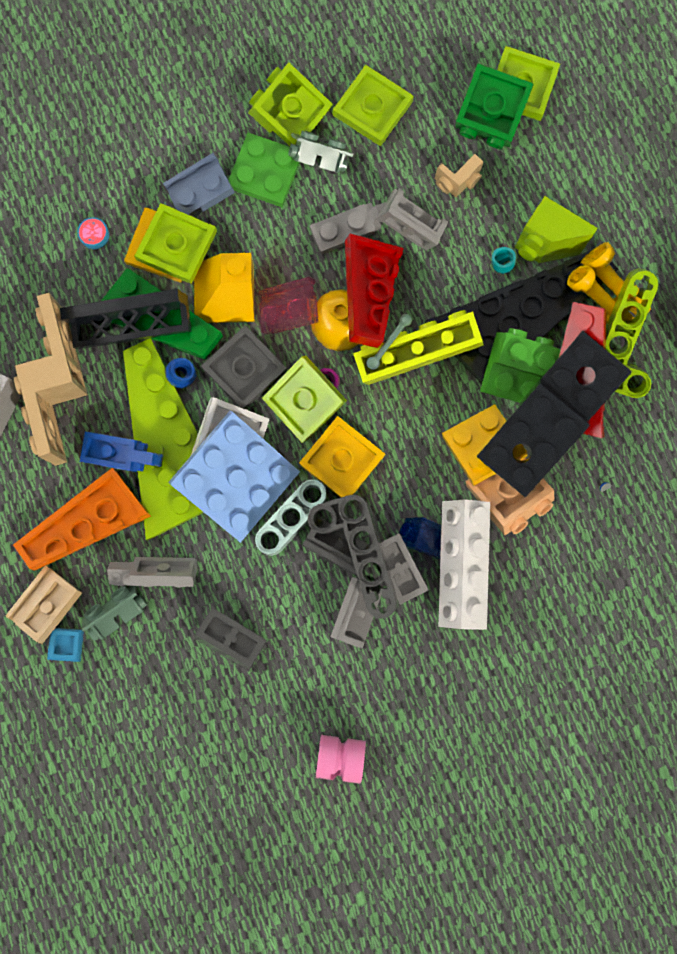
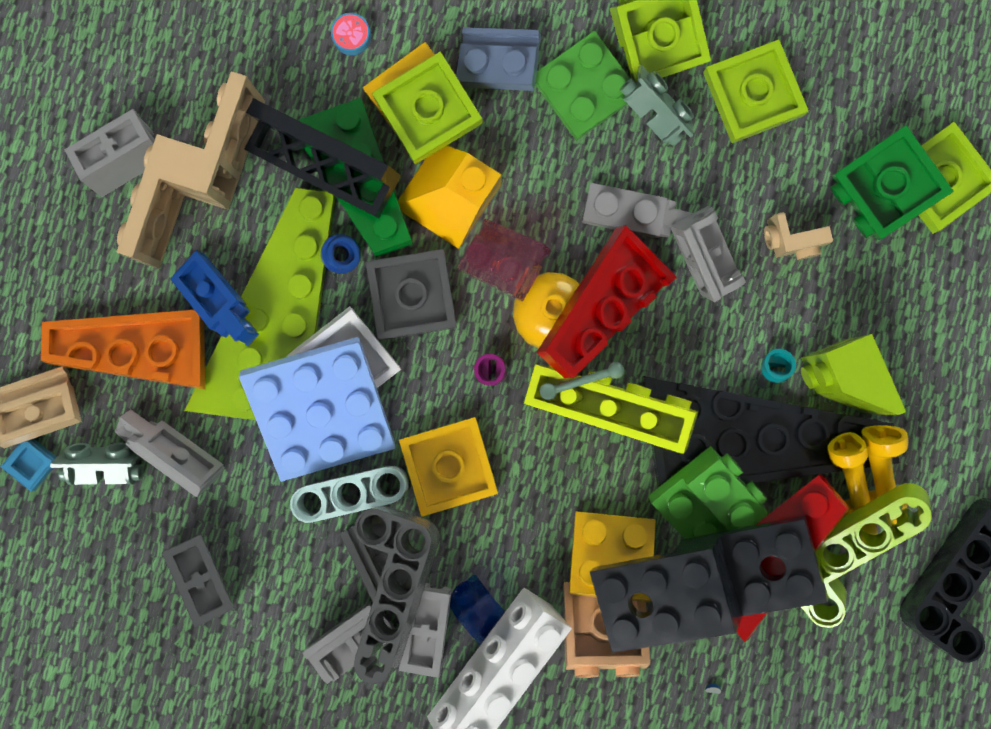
camera: 45 degrees right, 5 degrees up
(304, 399) = (451, 374): lime plate -> none

